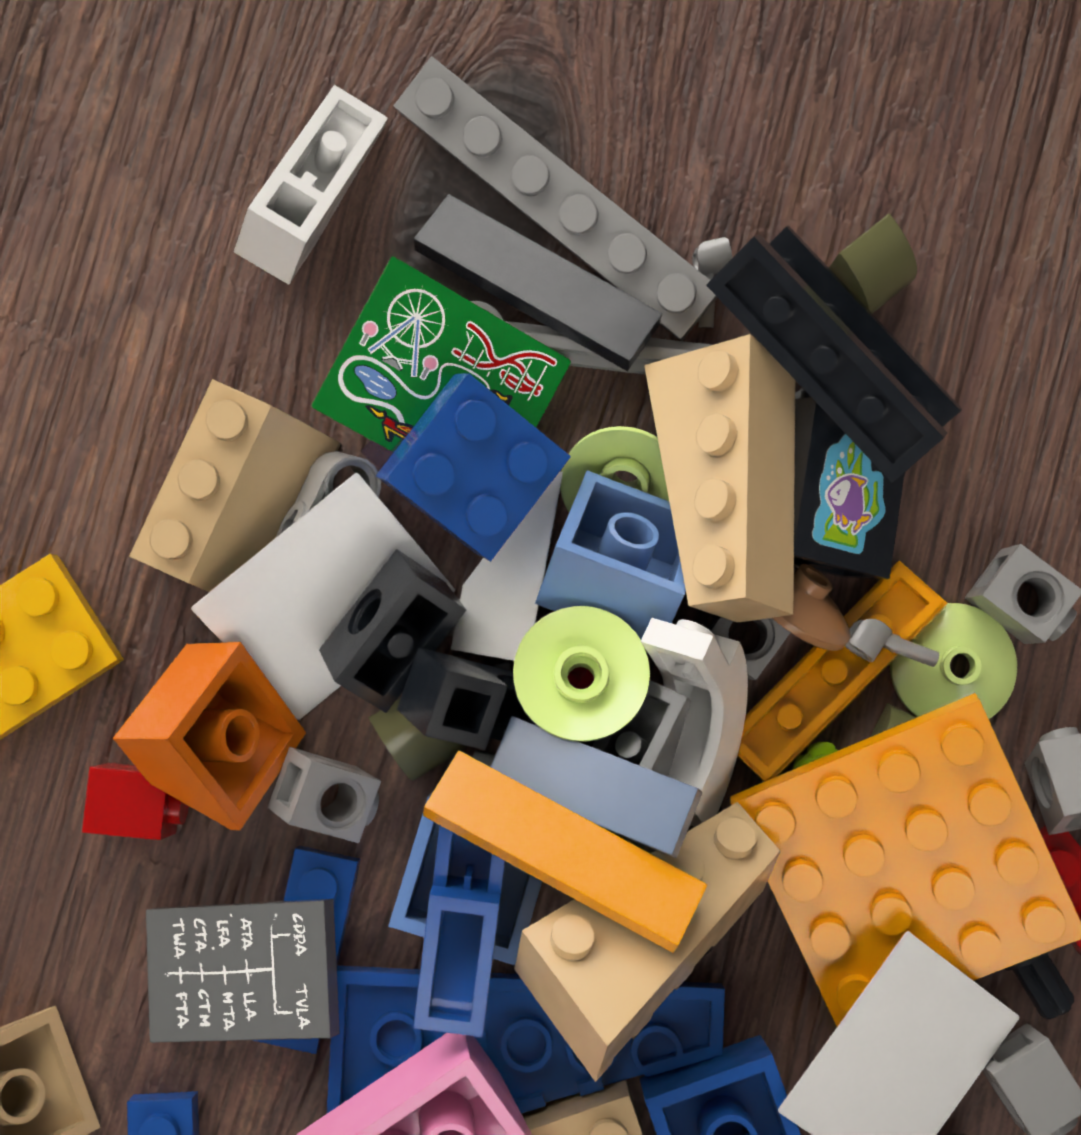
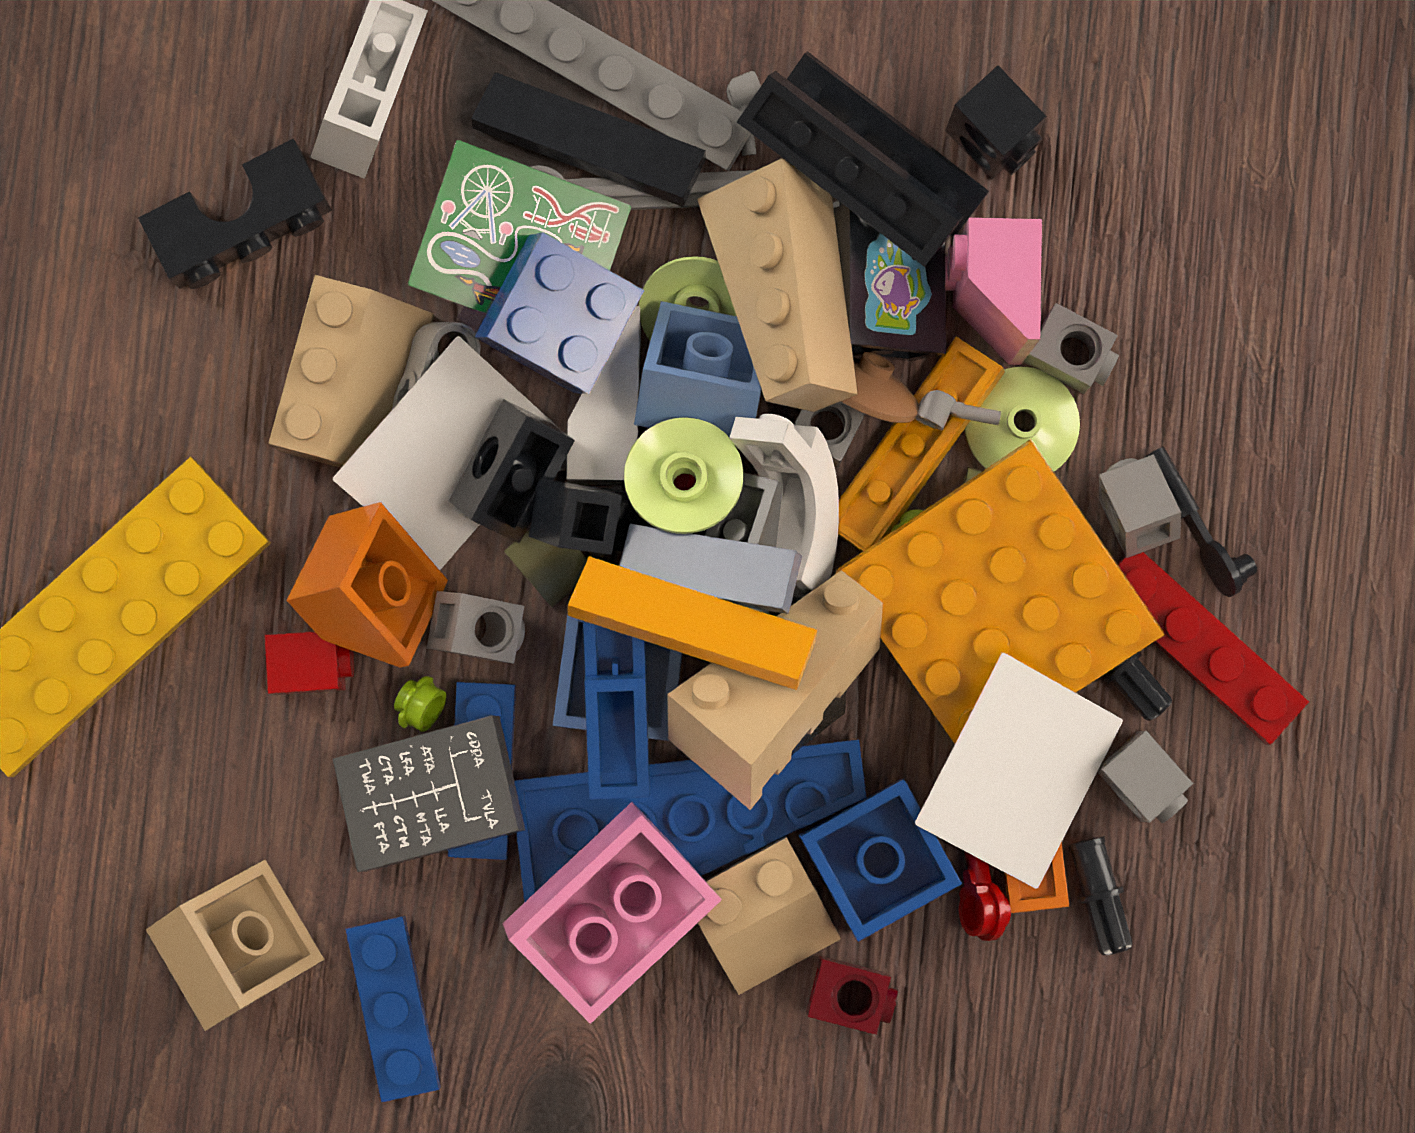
camera: 10 degrees left, 0 degrees up
(195, 294) = (282, 202): none -> black arch
(250, 865) = (419, 703): none -> lime plate
(877, 264) = (891, 75): olive brick -> none
(972, 515) = (998, 282): none -> bright pink slope
(988, 336) = (996, 124): none -> black brick

